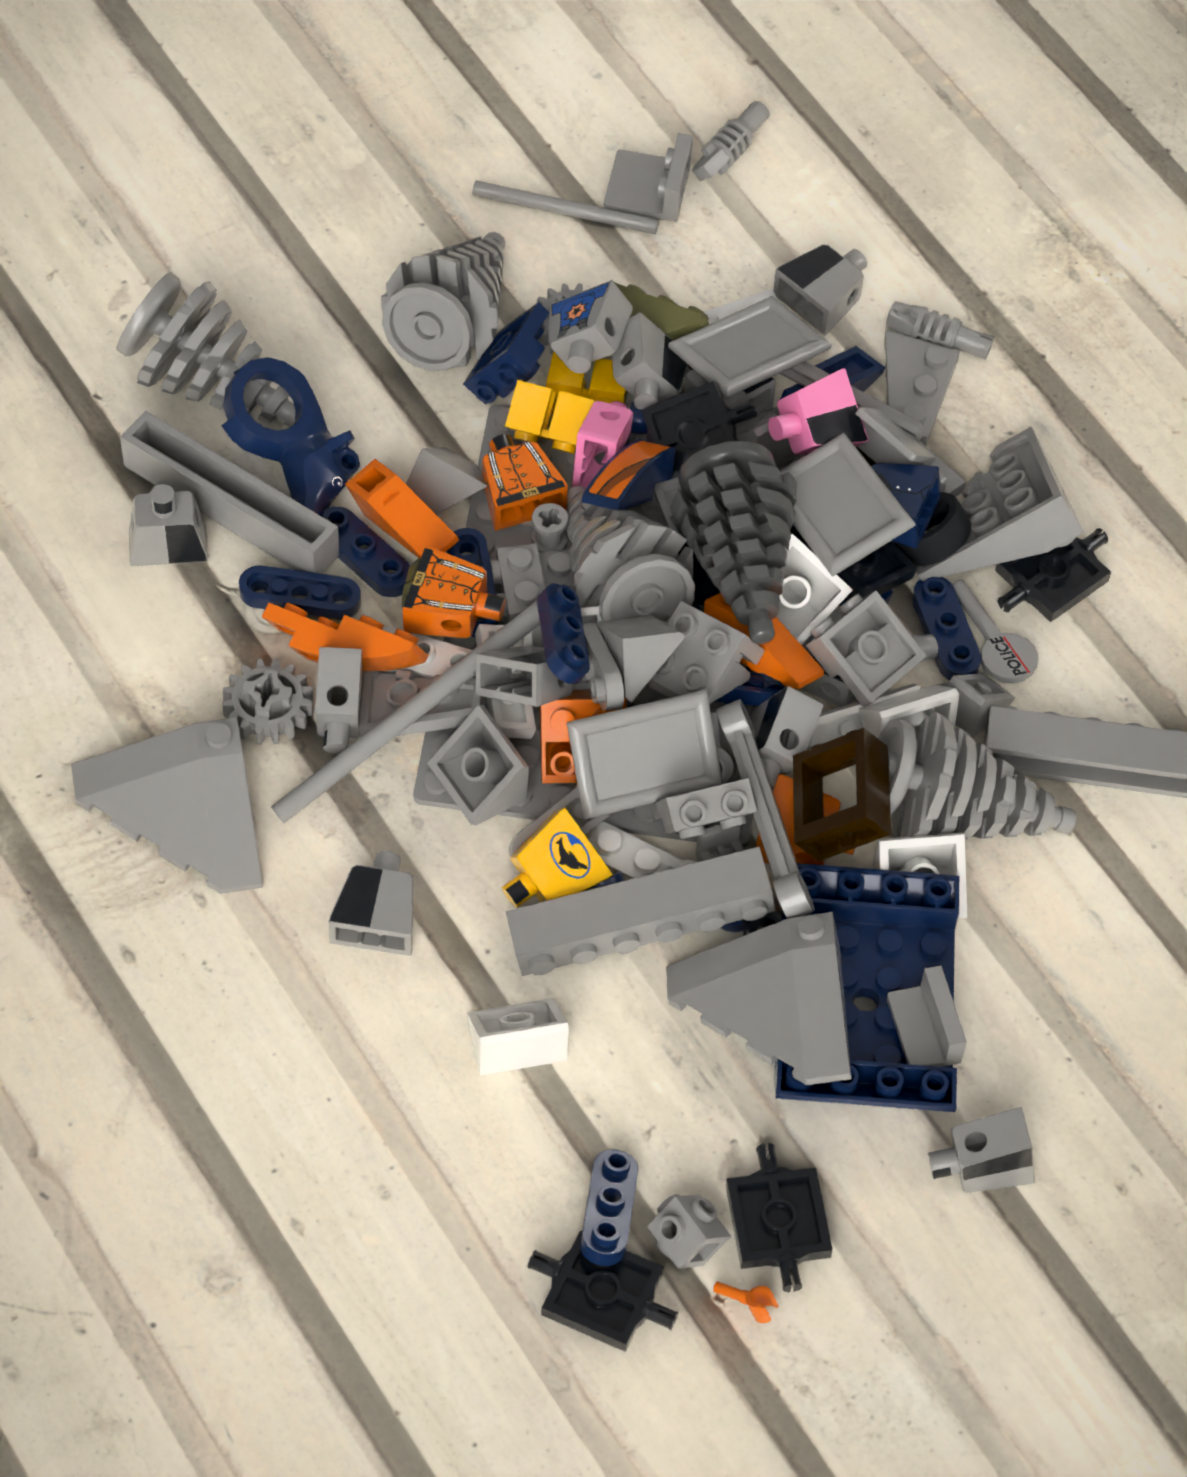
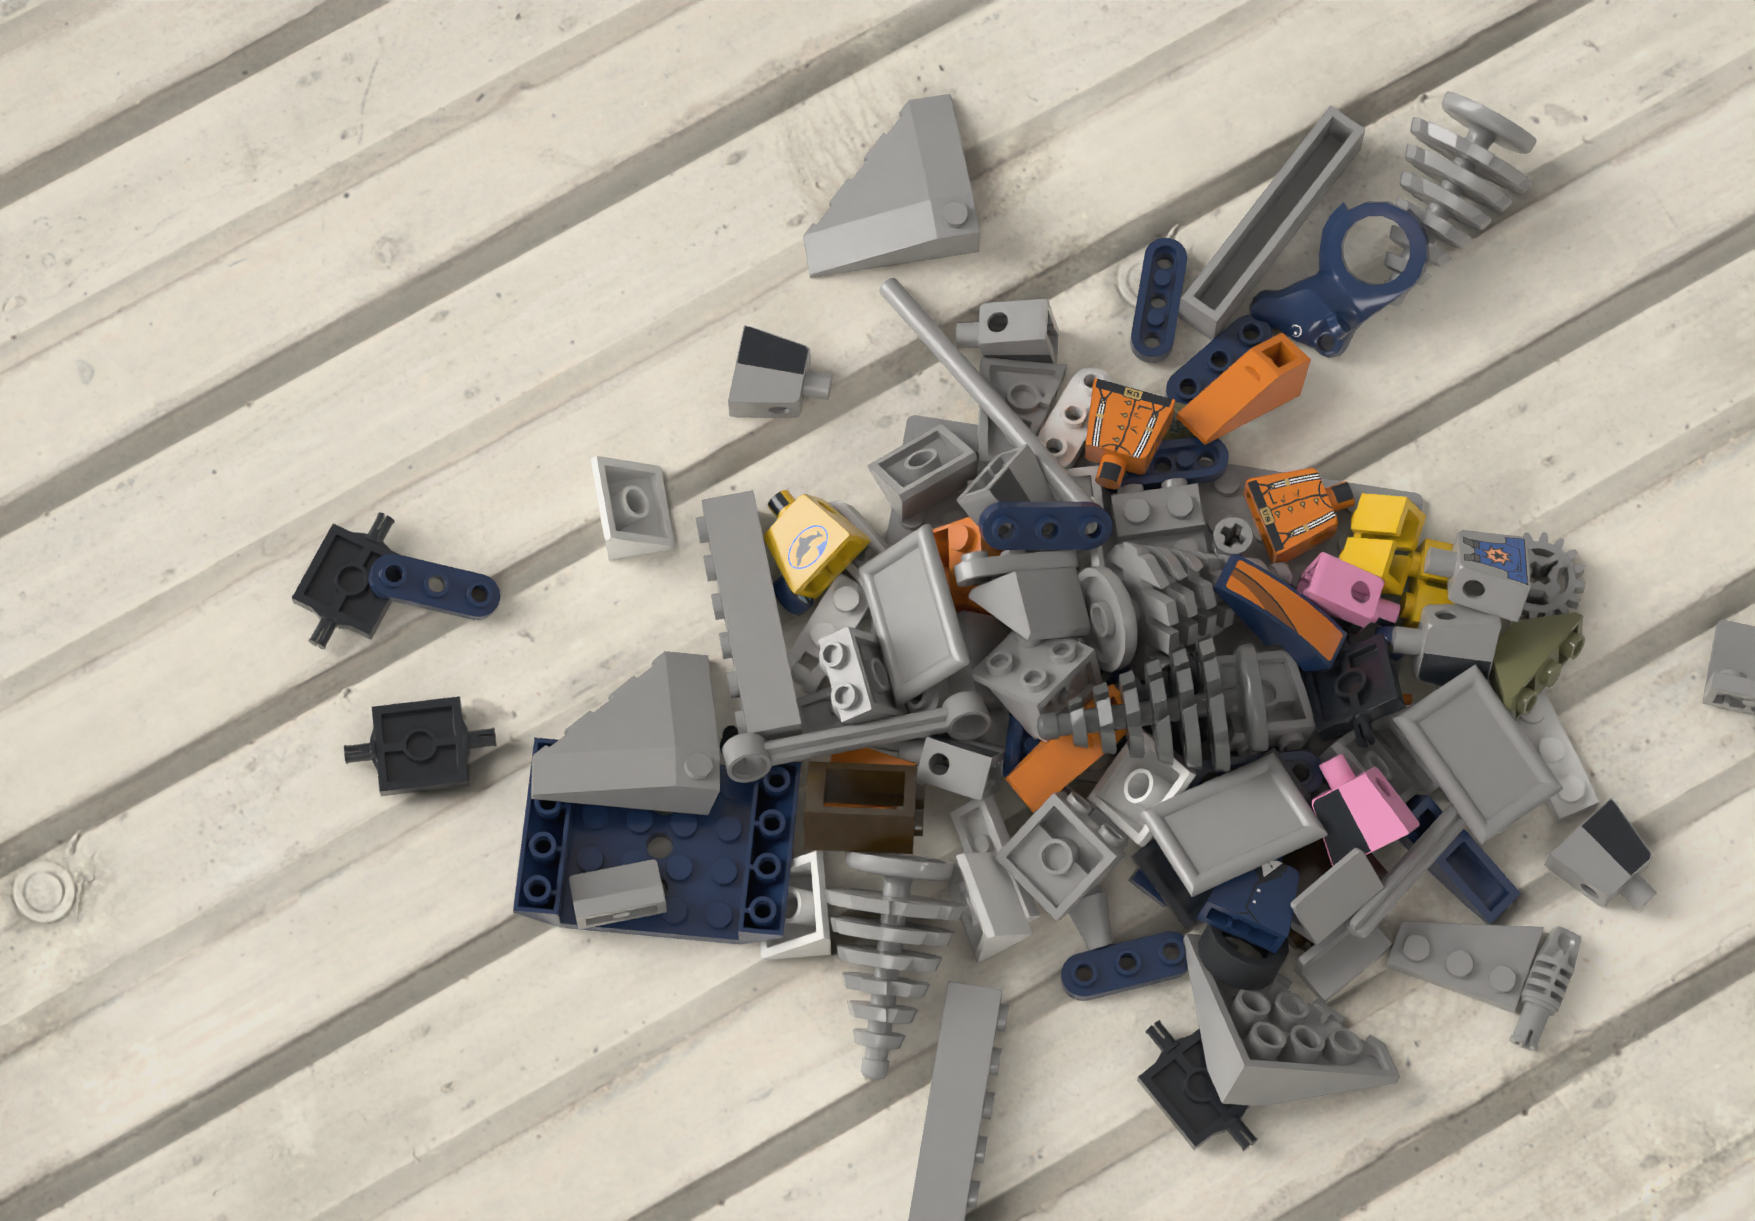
camera: 95 degrees right, 15 degrees up
(166, 528) = (1226, 159): light grey torso -> none
(271, 701) = (1037, 273): light grey gear -> none
(379, 648) = (1077, 335): orange slope -> none
(444, 478) = (1311, 438): light grey slope -> none
(445, 303) = (1546, 440): light grey plant -> none
(509, 357) = (1454, 495): dark blue plate -> none
(565, 207) = (1717, 580): light grey piece -> none
(688, 1230) = (404, 656): light grey brick -> none
(756, 1299) = (336, 717): orange hand -> none
(976, 696) = (1031, 980): light grey slope -> none
(988, 1153) = (471, 946): light grey torso -> none
(1003, 655) = (1089, 1027): light grey piece -> none

